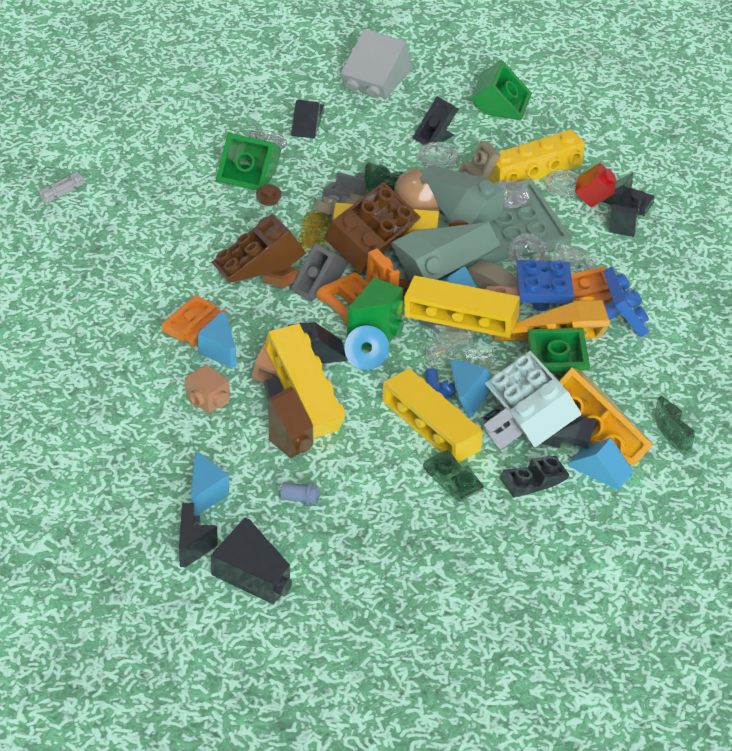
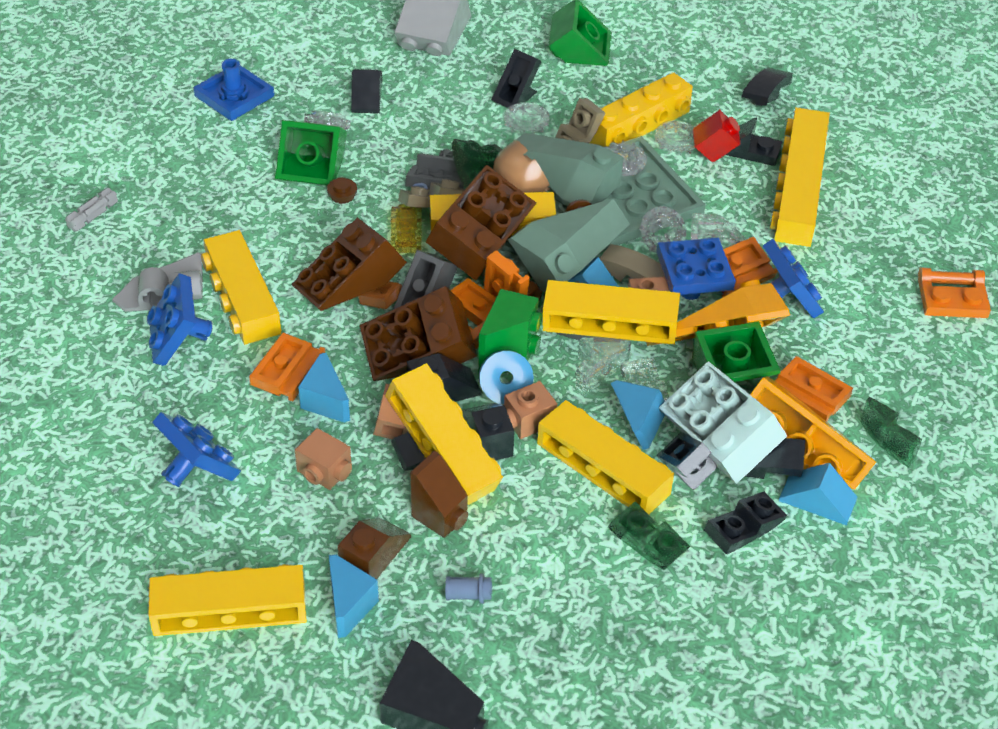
camera: 10 degrees left, 5 degrees up
(107, 368) = (195, 450): none -> blue plate
(108, 250) = (148, 287): none -> light grey panel
(111, 275) = (174, 320): none -> blue plate
(112, 476) = (227, 600): none -> yellow brick
(169, 257) = (241, 287): none -> yellow brick
(194, 538) = (350, 676): black slope -> none
(195, 107) = (233, 90): none -> blue plate
(232, 453) = (373, 545): none -> reddish brown slope
(311, 300) = (417, 330): none -> reddish brown slope
(346, 385) = (493, 427): none -> black slope
(376, 371) = (528, 407): none -> nougat brick
(444, 388) = (609, 418): blue arm -> none
(621, 386) = (814, 387): none -> orange plate
(624, 219) = (758, 172): black slope -> none
(654, 150) = (766, 86): none -> black slope
(661, 225) = (802, 177): none -> yellow brick

